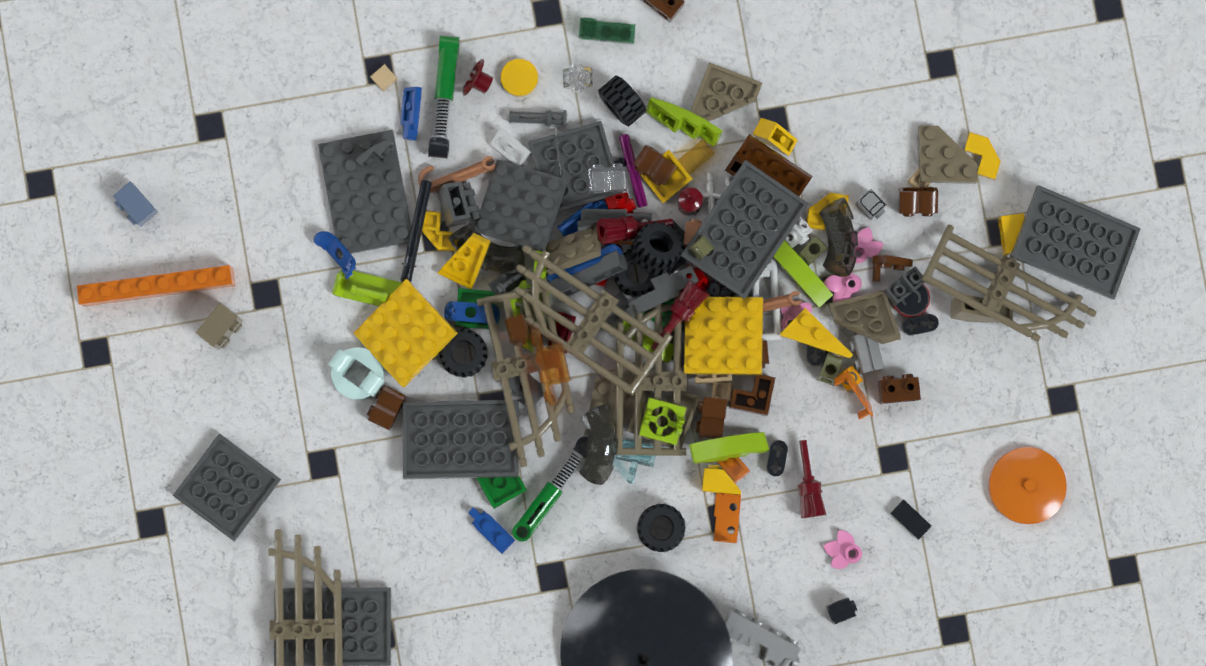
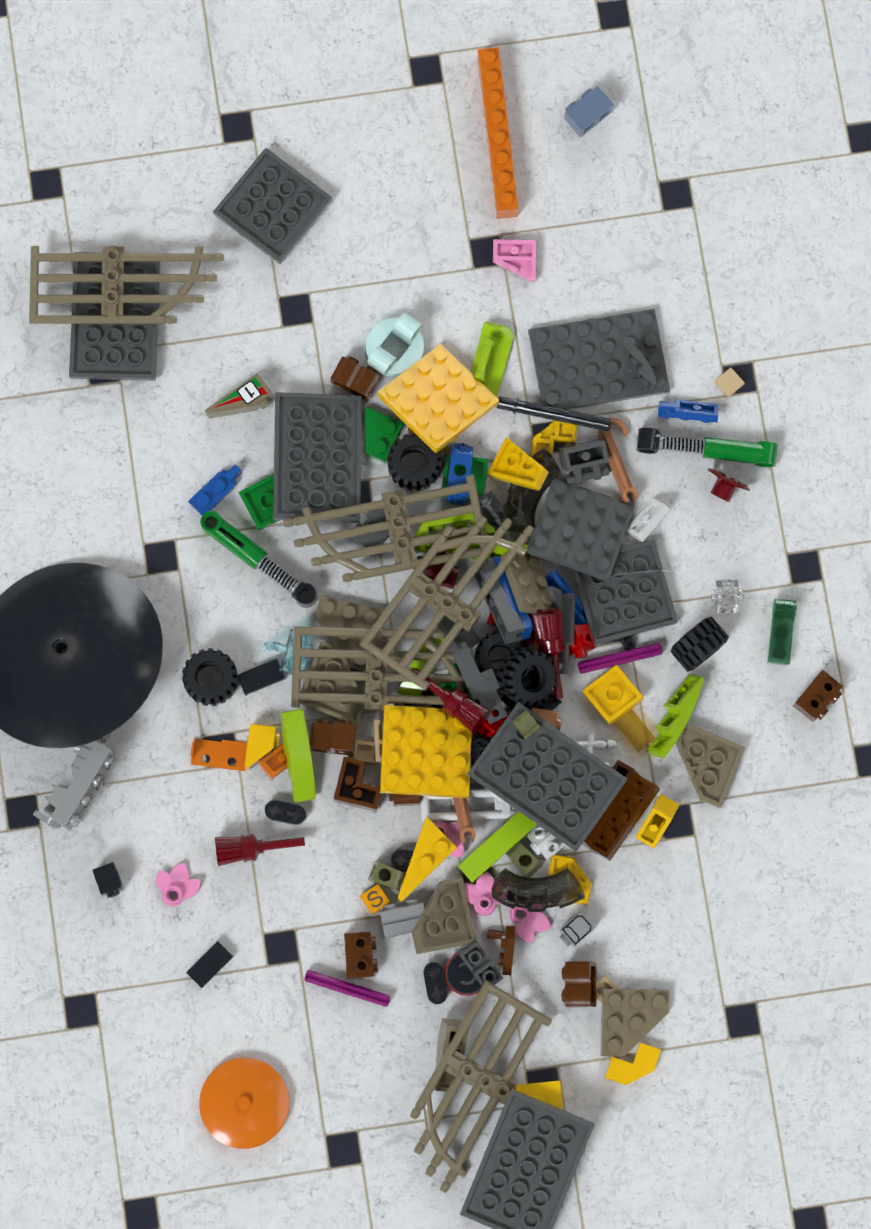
camera: 90 degrees right, 5 degrees down
(220, 326) = (450, 198): dark tan brick -> none
(272, 266) = (516, 256): none -> bright pink wing
(331, 243) = (541, 321): blue piece -> none
(406, 504) = (245, 398): none -> dark tan slope
(436, 385) = (380, 434): none -> green wing
(514, 117) = (681, 561): dark grey pin -> none
(516, 330) = (435, 514): reddish brown brick -> none
(519, 77) = (729, 532): yellow tile -> none
(552, 364) = (395, 554): clear orange bracket -> none
(601, 445) = (305, 610): clear smoke brick -> none
(607, 179) = (608, 626): clear brick -> none
(655, 165) = (624, 680): reddish brown brick -> none
(658, 483) = (261, 677): none -> black tile
(679, 412) = (319, 660): lime piece -> none
(690, 201) = (582, 719): dark red piece -> none
(847, 376) = (357, 905): orange piece -> none
(927, 399) = (347, 988): none -> magenta axle

